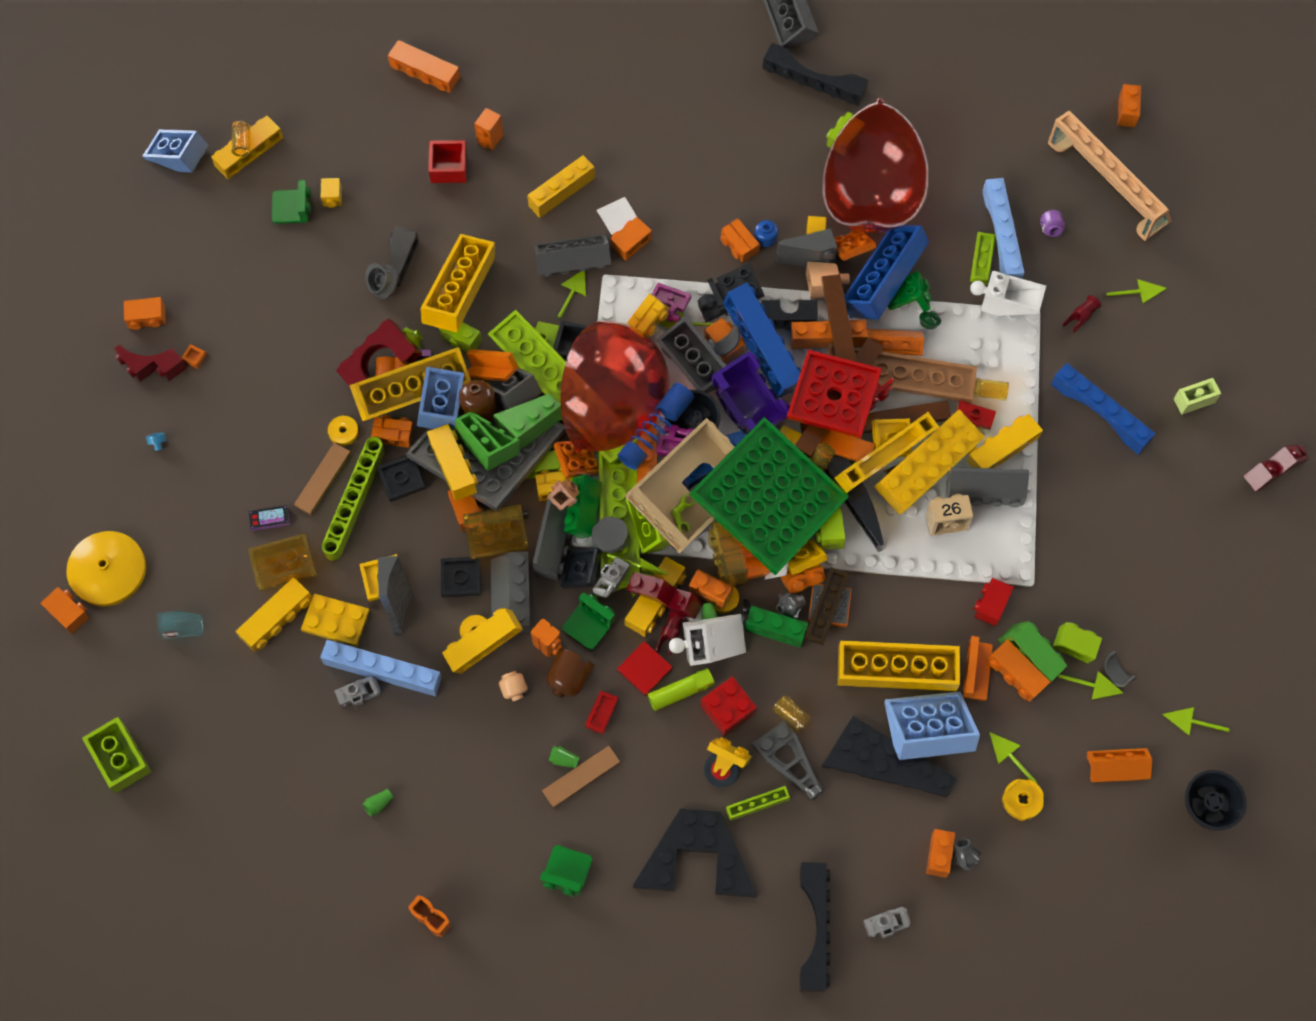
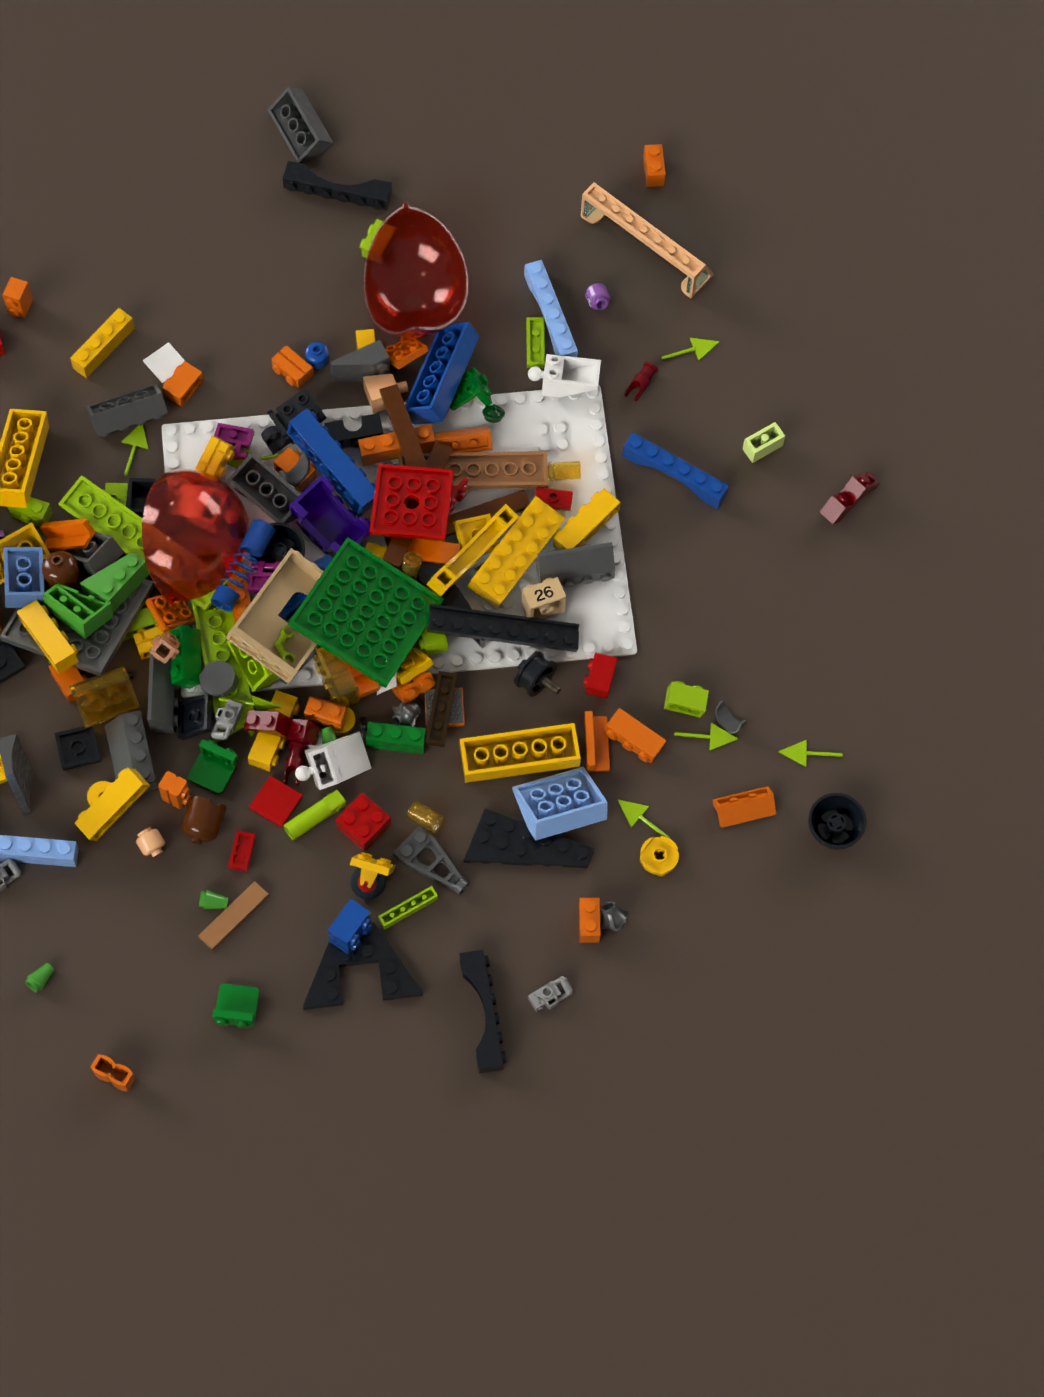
camera: 15 degrees left, 0 degrees up
(695, 813) = (350, 927): none -> blue brick
(903, 536) = (503, 628): none -> black plate
(928, 589) = (536, 674): none -> black wheel
(1035, 649) = (648, 712): bright green wedge -> none

